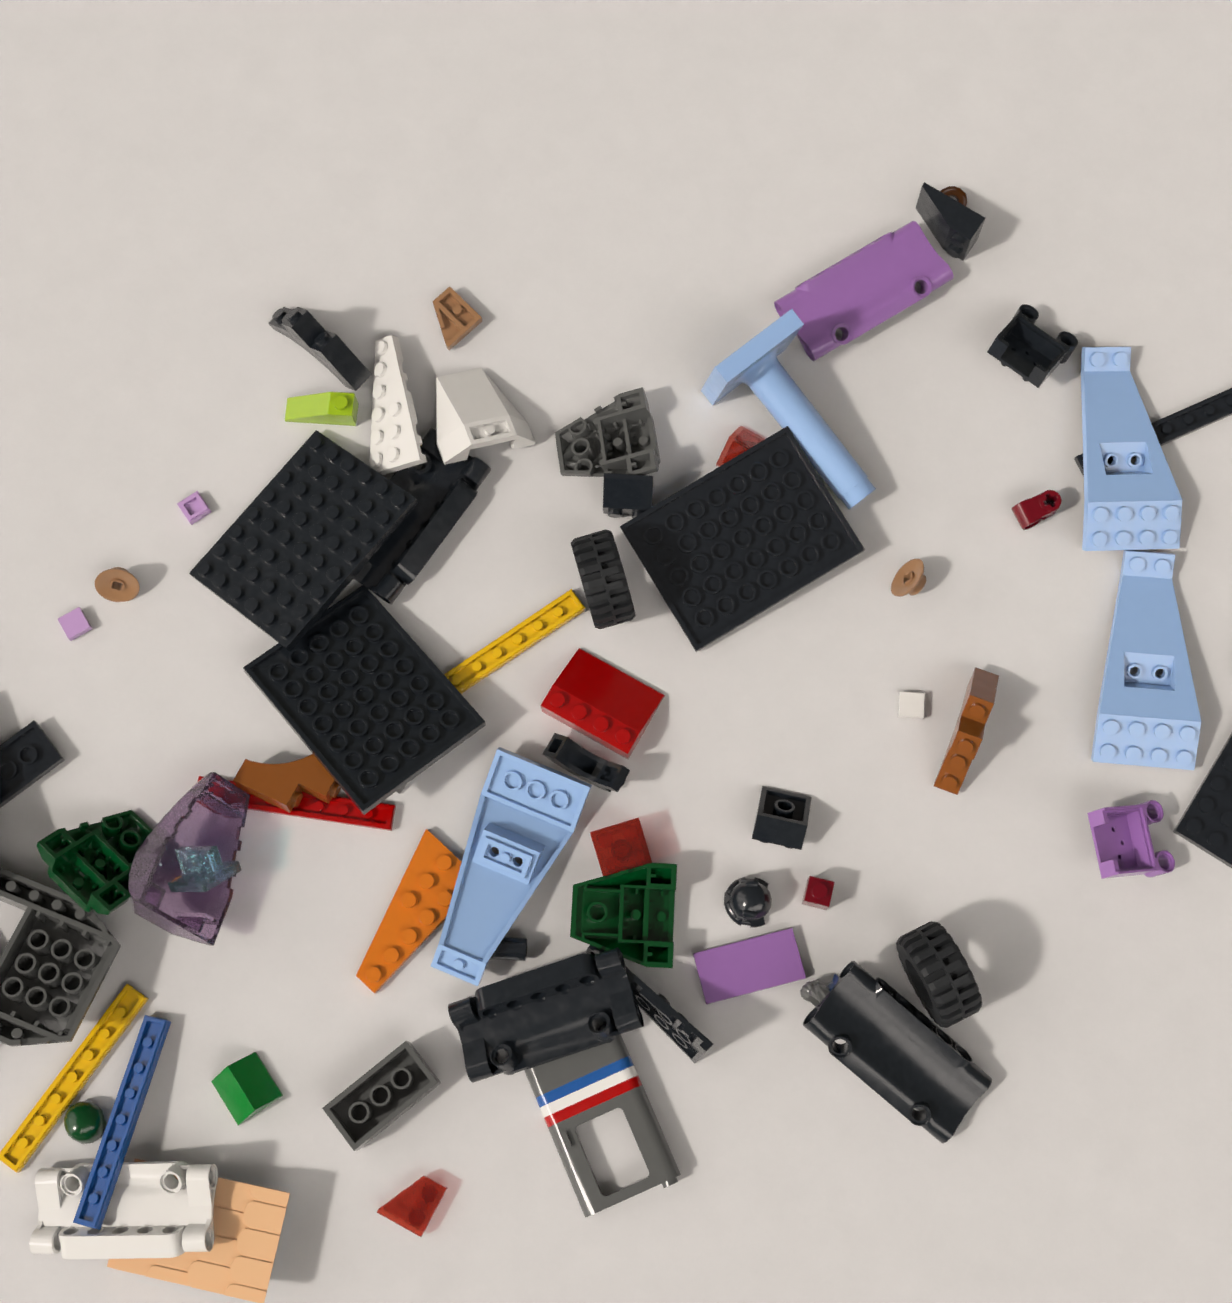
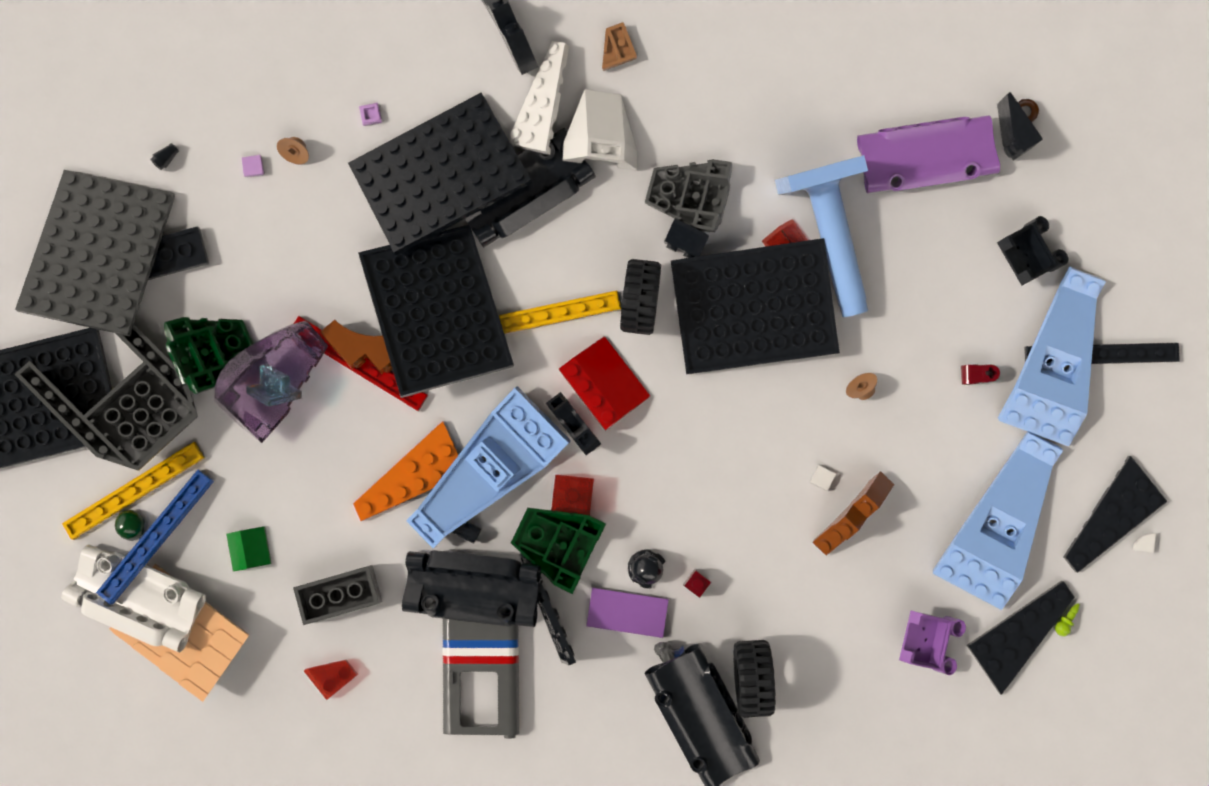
camera: 20 degrees right, 10 degrees up
(323, 408) = (492, 78): lime slope -> none
(782, 818) = (695, 519): black slope -> none

